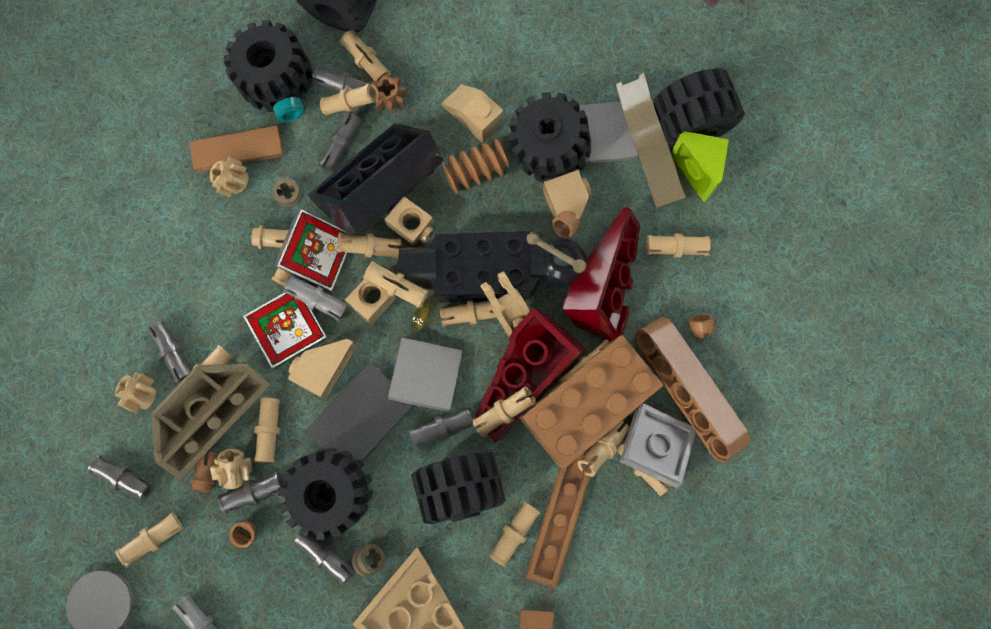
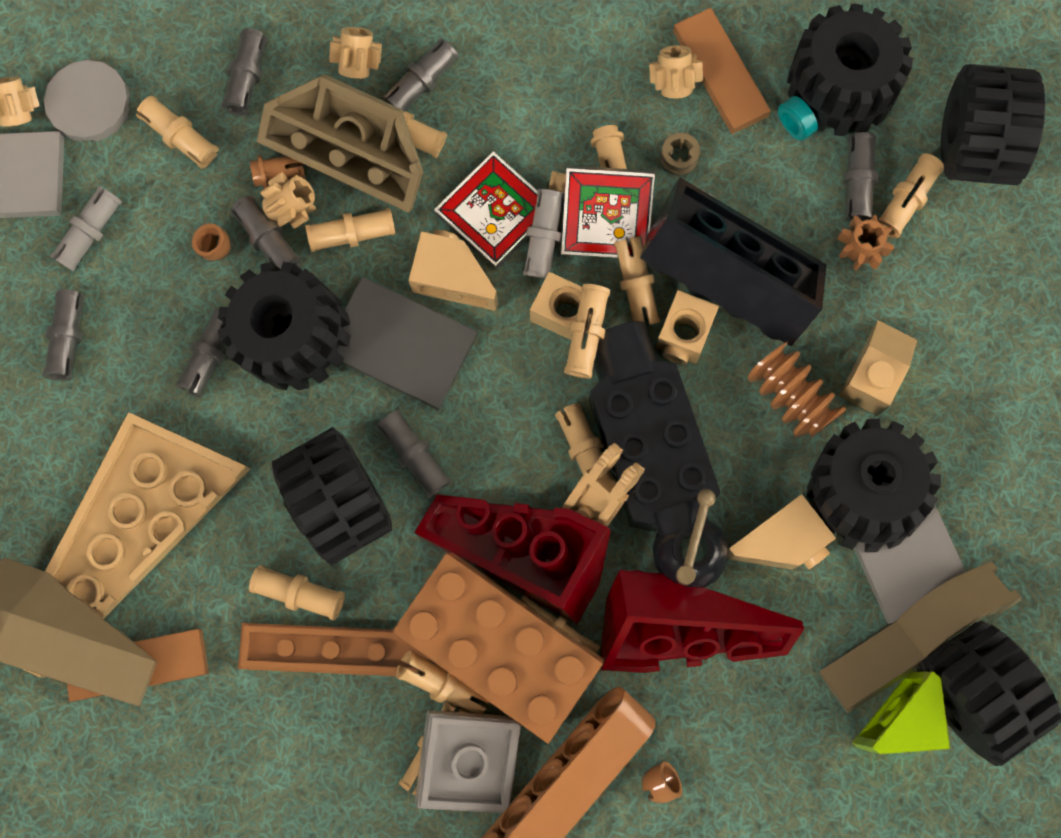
camera: 75 degrees right, 0 degrees up
(340, 142) = (773, 200): flat silver pin -> none
(349, 99) = (837, 191): tan pin -> none
(369, 569) = (207, 420): dark tan bush -> none
(420, 316) = (556, 380): clear yellow tile -> none
(425, 375) = (480, 410): light grey tile -> none
(504, 411) = (455, 530): tan pin -> none
(568, 230) = (745, 541): medium nougat hinge -> none
(677, 245) = (771, 718): tan pin -> none

